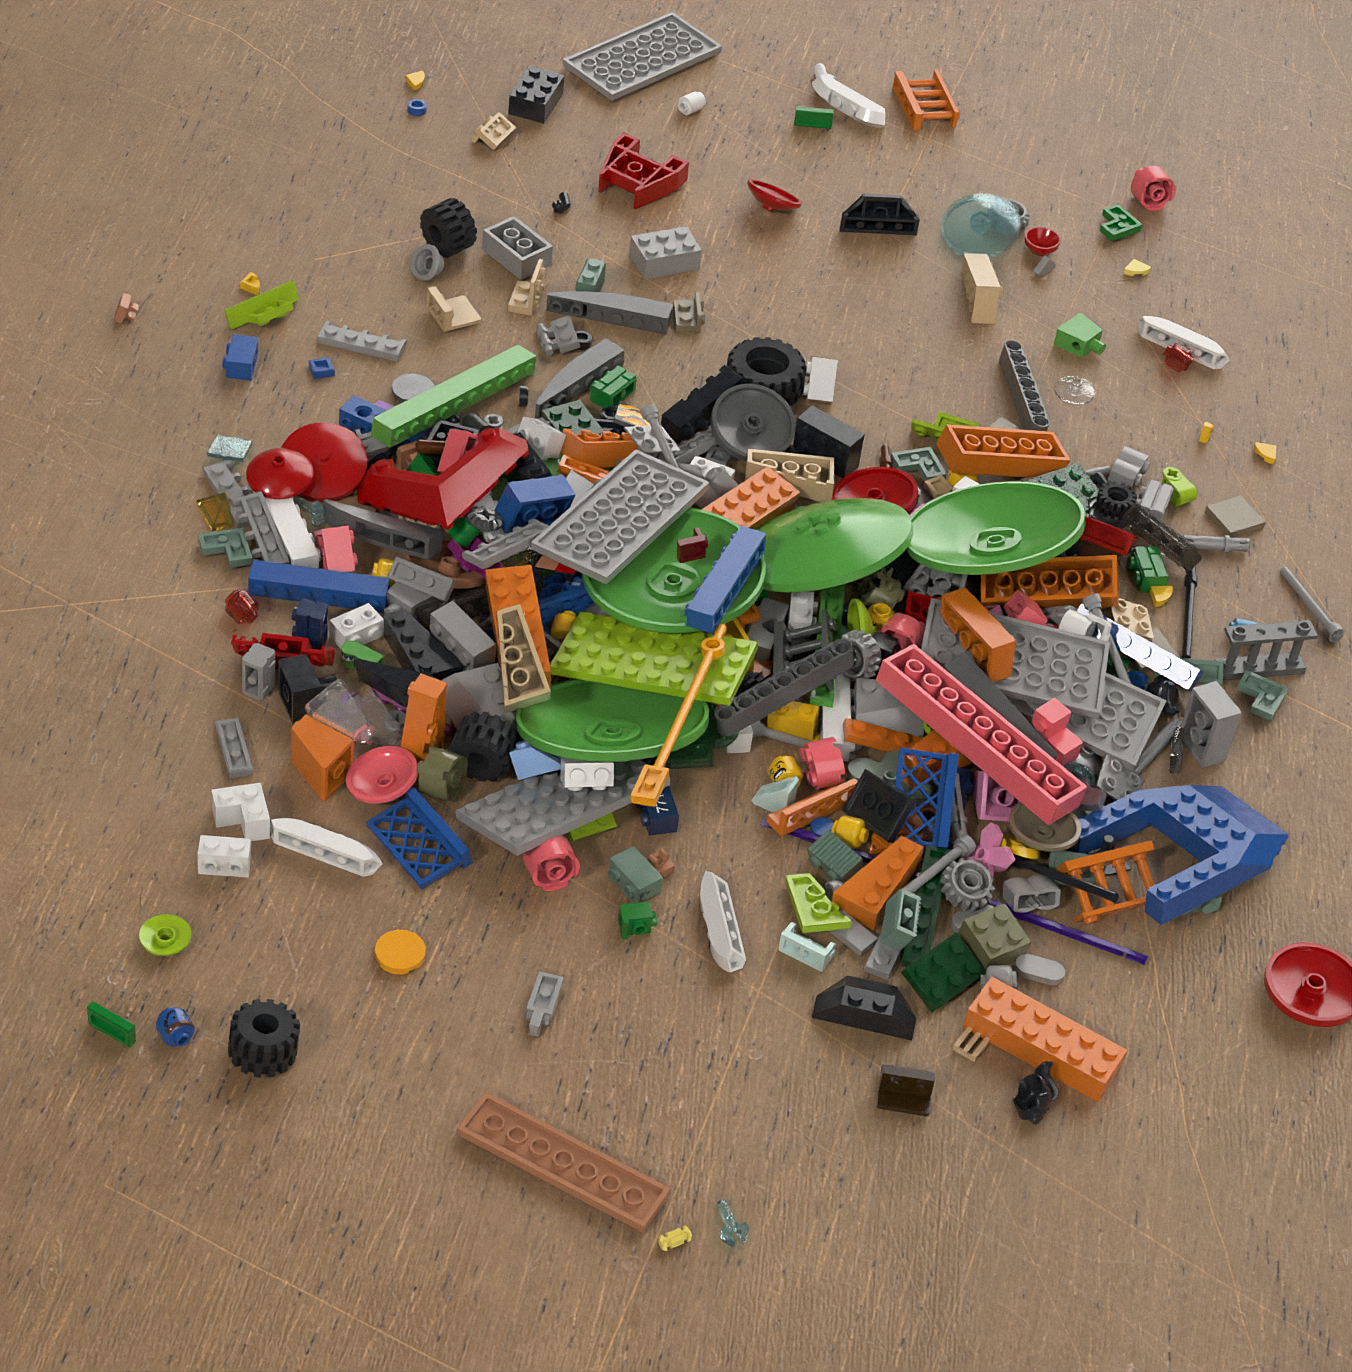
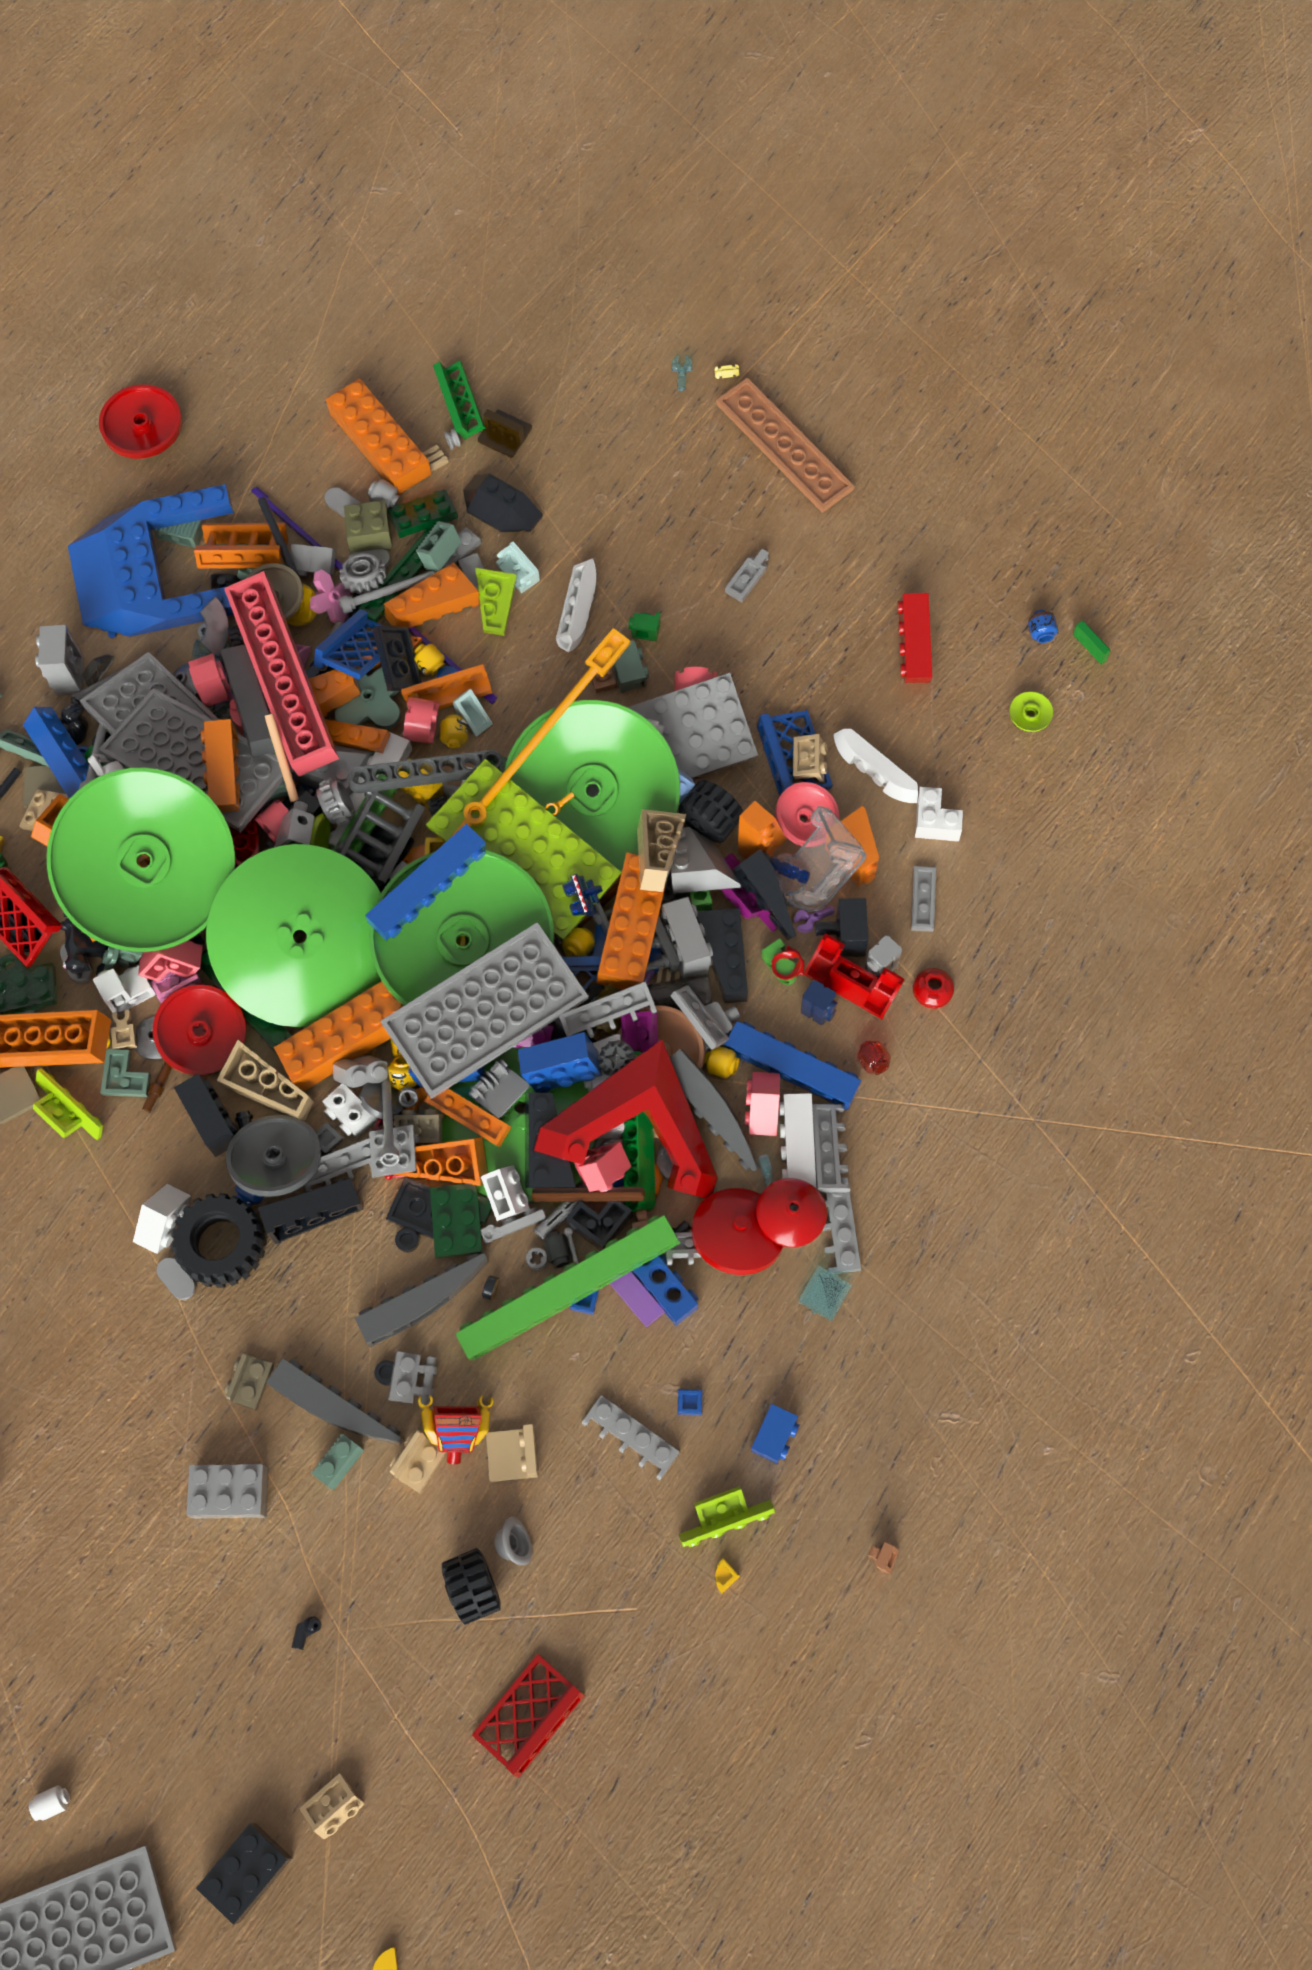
camera: 150 degrees left, 25 degrees up
(200, 683) = (929, 997): none -> red piece
(216, 511) = (863, 1206): clear yellow slope -> none
(224, 856) = (964, 773): white brick -> none
(230, 542) = (863, 1152): sand green plate -> none
(263, 1038) = (979, 589): black wheel -> none
(325, 976) = (915, 638): none -> red wedge
(350, 654) = (787, 954): none -> red piece
(357, 625) = (773, 1001): white brick -> none
(359, 185) = (543, 1731): none -> red fence
(388, 723) = (790, 871): none -> clear blue axle
(398, 826) = (809, 757): none -> tan bracket
(400, 951) = (844, 653): light orange tile -> none
(409, 386) = (602, 1337): tile -> none
(416, 107) = (407, 1899): blue tile -> none
(441, 774) = (760, 792): olive brick -> none
(507, 308) = (455, 1427): none -> torso
(516, 247) = (398, 1541): light grey brick -> none
(577, 627) = (579, 887): none -> hips
(613, 387) = (389, 1274): green brick -> none
(629, 415) = (387, 1211): slope -> none
(639, 174) = (195, 1654): red wedge -> none
(641, 693) = (560, 803): none -> light orange hand
(692, 547) = (440, 935): dark red bracket -> none
(773, 196) = (45, 1562): red dish -> none
(831, 886) = (468, 613): light grey hinge -> none
(834, 857) = (455, 636): sand green brick -> none
(880, 613) = (295, 826): none -> light grey torso
(941, 660) = (282, 760): none -> light nougat bar
(960, 1064) = (452, 439): none -> light grey bush
(984, 1107) = (452, 401): none -> green fence
(1036, 1093) = (413, 395): black hair -> none
(1117, 779) = (172, 647): light grey hinge -> none

